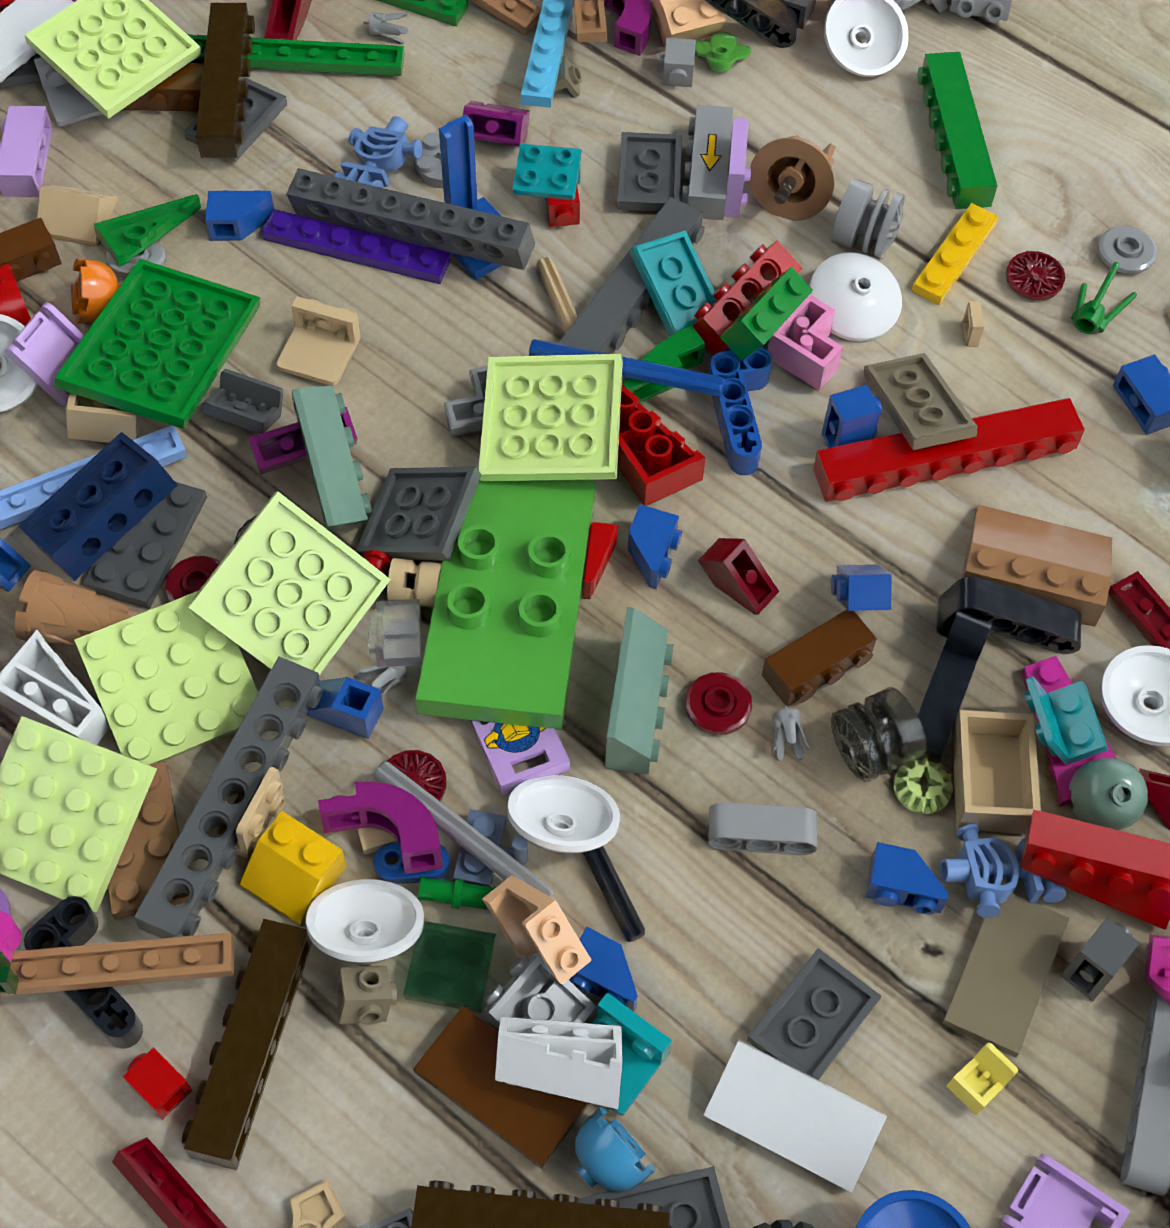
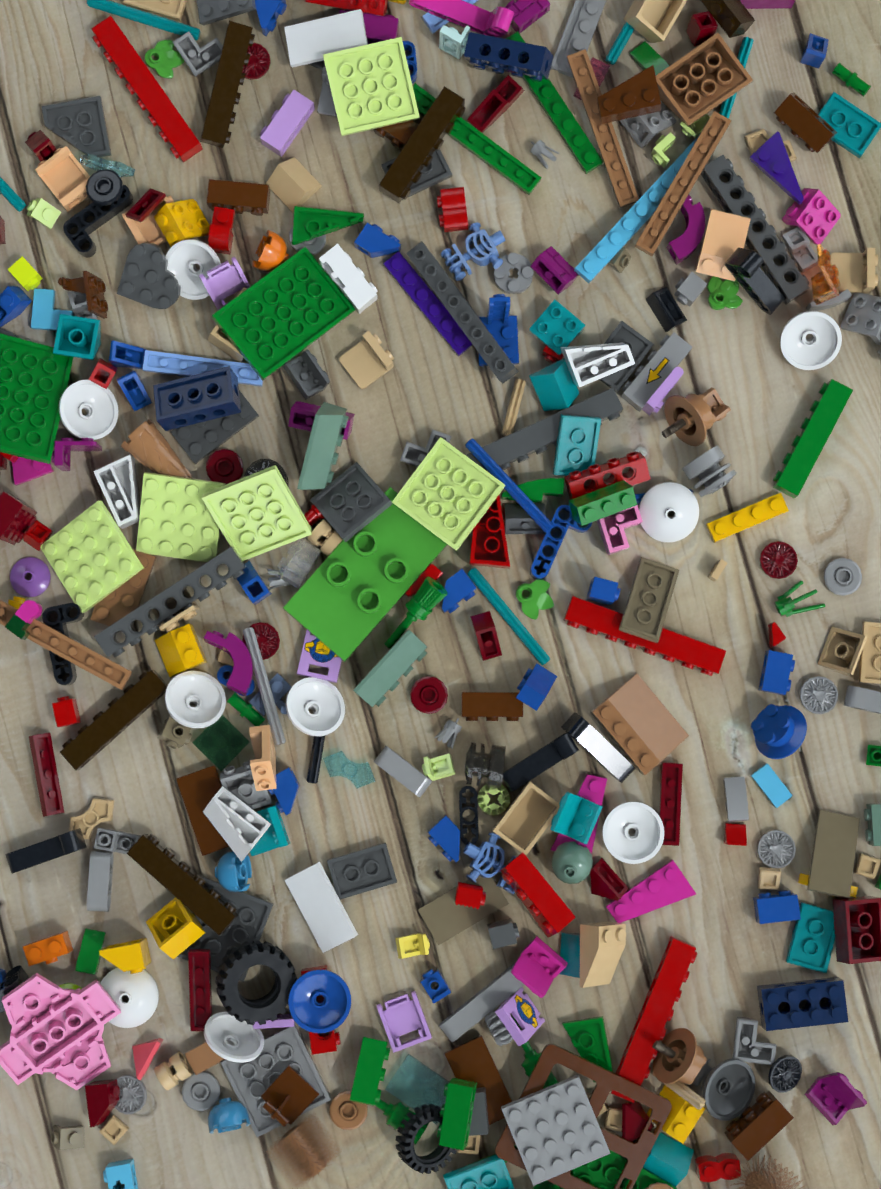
camera: 35 degrees right, 25 degrees up
(224, 260) = (348, 278): none -> white wedge
(315, 131) = (453, 209): none -> red brick
(593, 240) = (554, 386): none -> teal slope
(617, 586) = (419, 606): none -> green piece
(625, 173) = (596, 361): none -> white wedge
(663, 884) = (358, 773): none -> clear light blue tile
(665, 101) = (666, 309): none -> black slope
(681, 408) = (519, 522): none -> dark grey panel
(757, 537) = (508, 616): none -> teal axle
(769, 494) = (537, 599): none -> bright green plate
(811, 787) = (438, 767): none -> yellowish green bracket
(881, 816) = (475, 809): none -> black beam
(1007, 929) = (470, 895): none -> red brick
(1070, 1134) = (443, 988): none -> blue brick
(1108, 352) = (775, 634): none -> red slope

